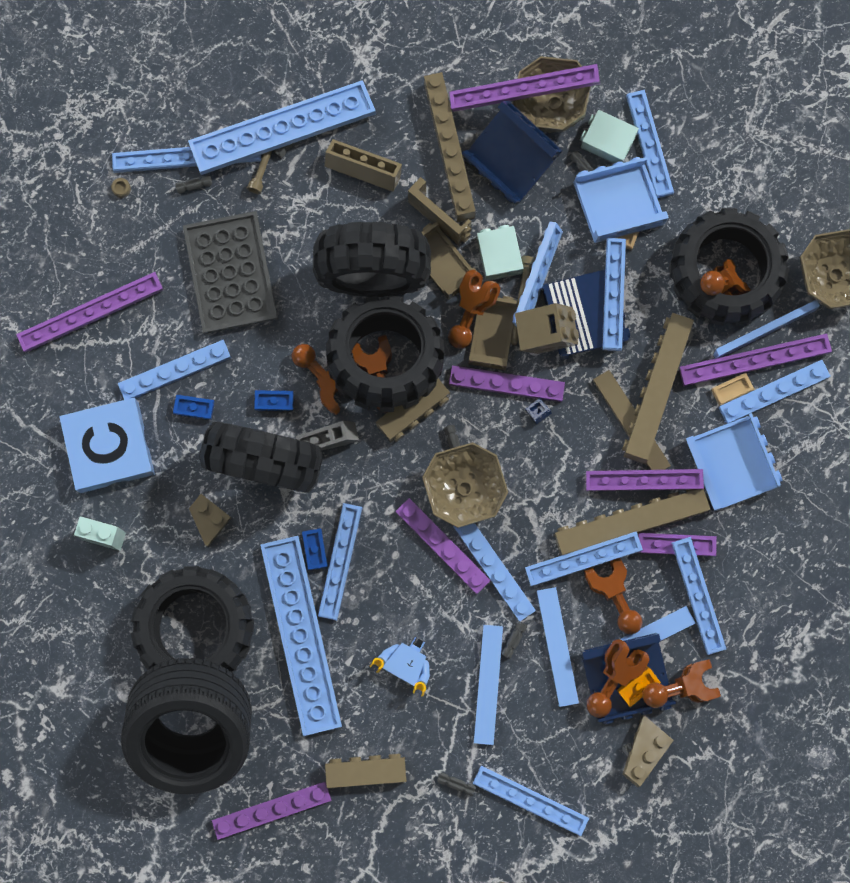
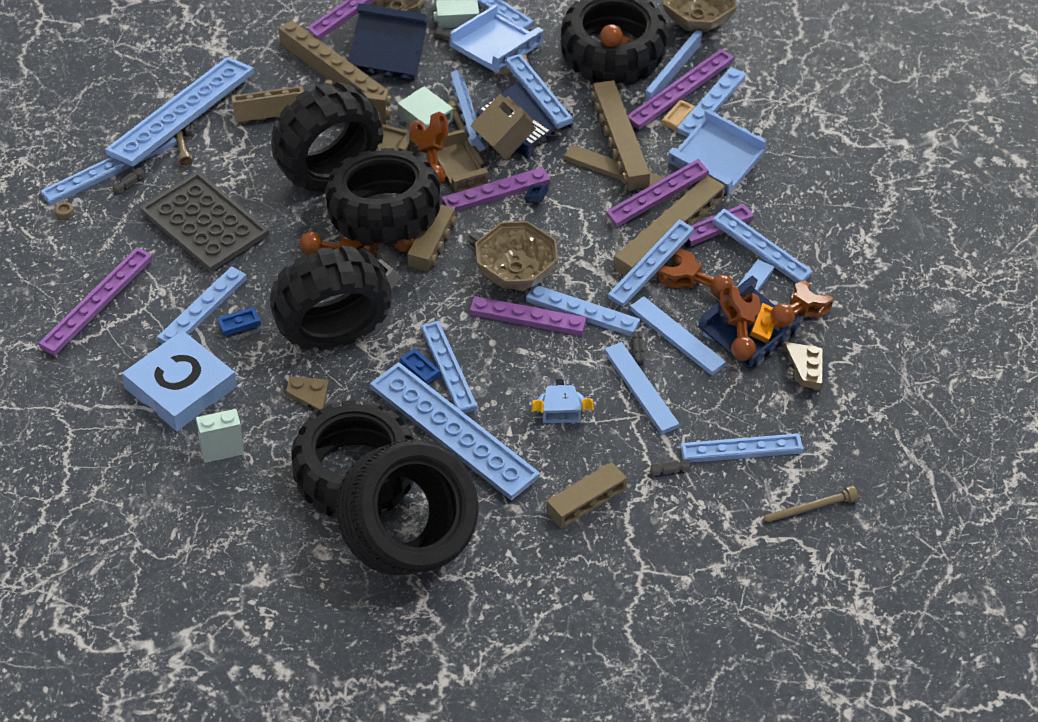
camera: 35 degrees left, 30 degrees down
(271, 810) = (524, 568): medium lavender plate -> none

